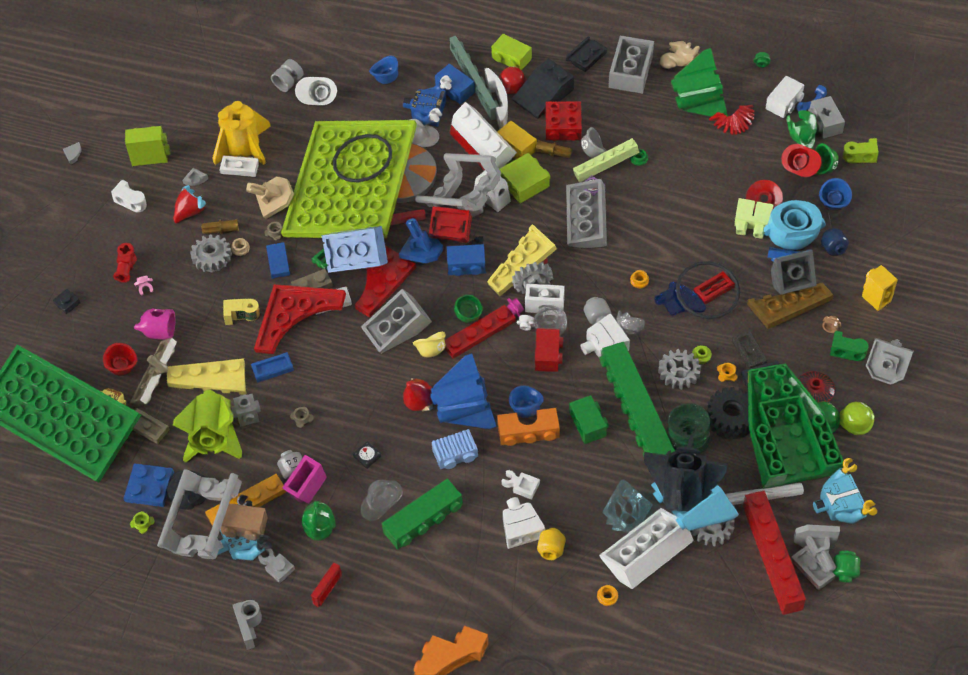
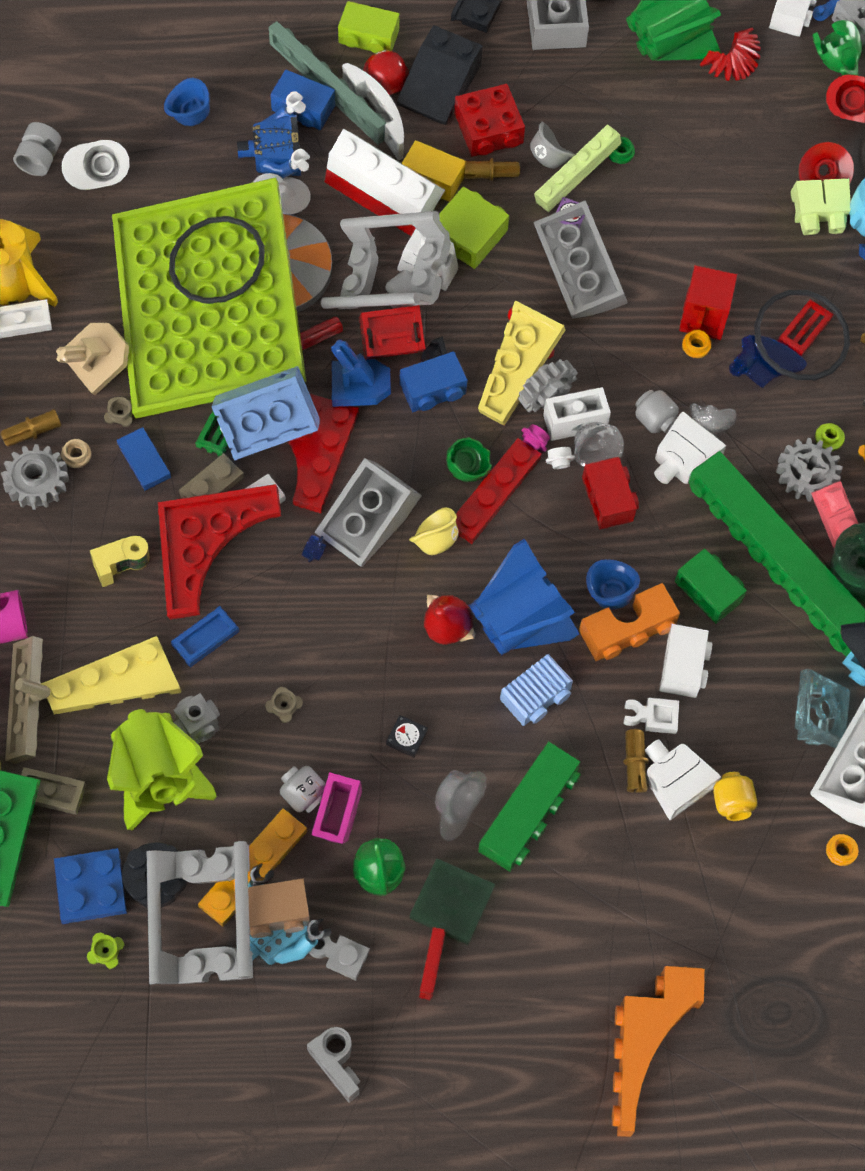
camera: 25 degrees left, 10 degrees up
(354, 554) = (452, 901): none -> clear green plate
(355, 334) = (314, 548): none -> clear blue plate
(498, 506) = (635, 761): none -> pearl gold axle
(553, 458) = (685, 660): none -> white brick
(653, 254) = (708, 301): none -> red piece
(684, 391) = (834, 510): none -> coral hinge

